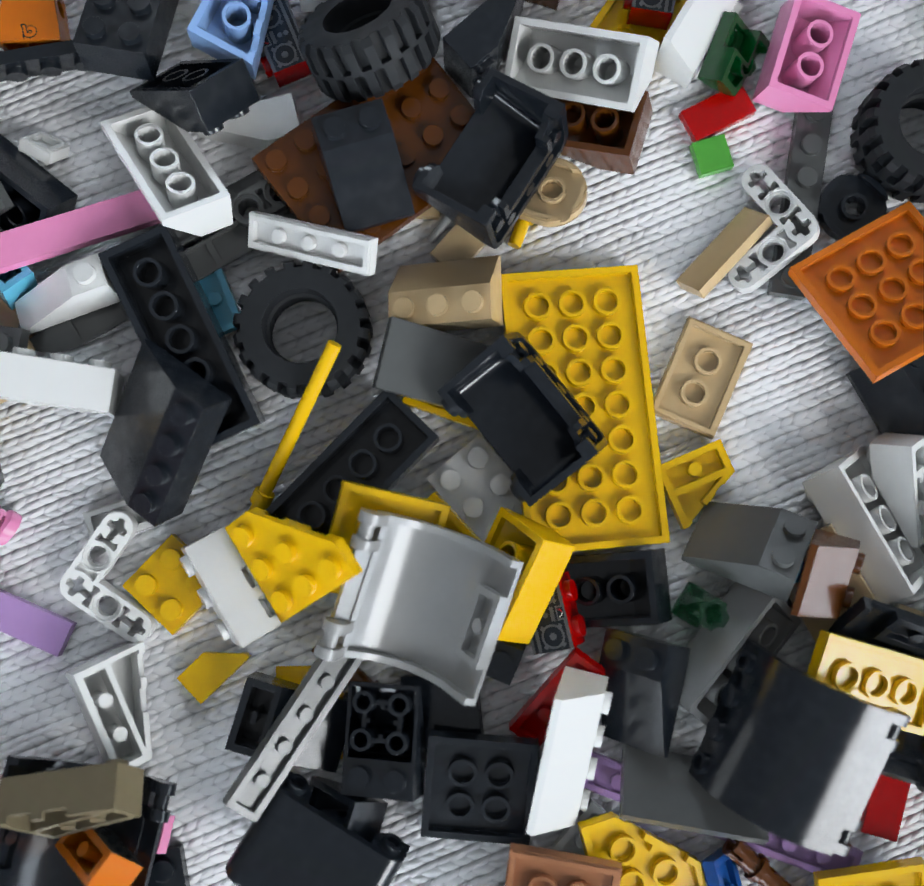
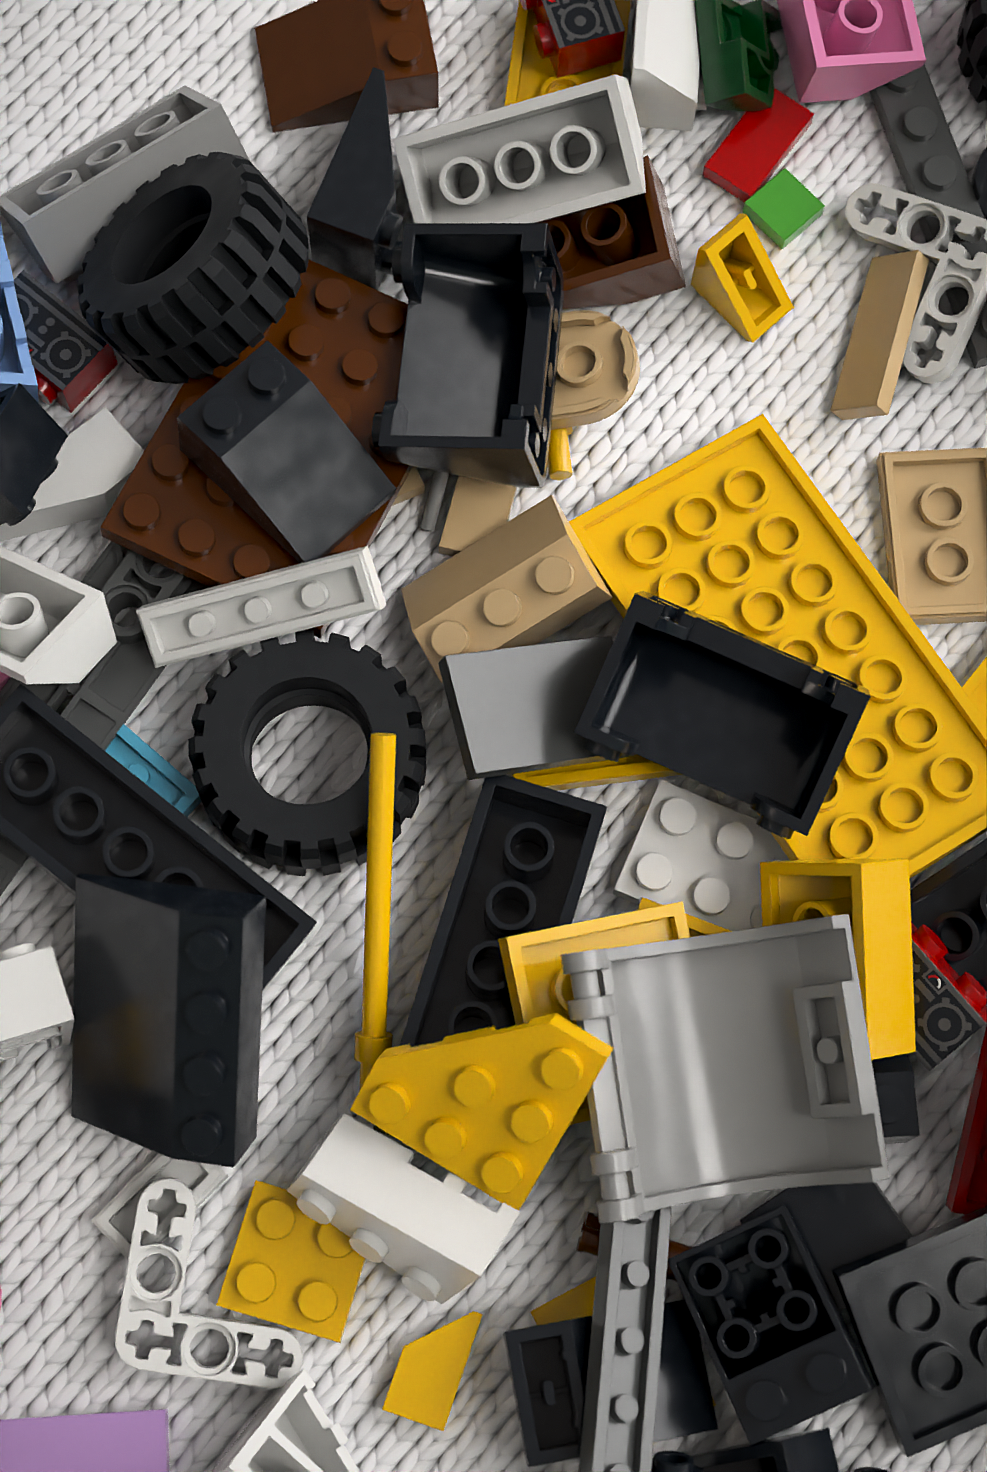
camera: 30 degrees left, 10 degrees down
(665, 185) = (740, 280): none -> yellow slope

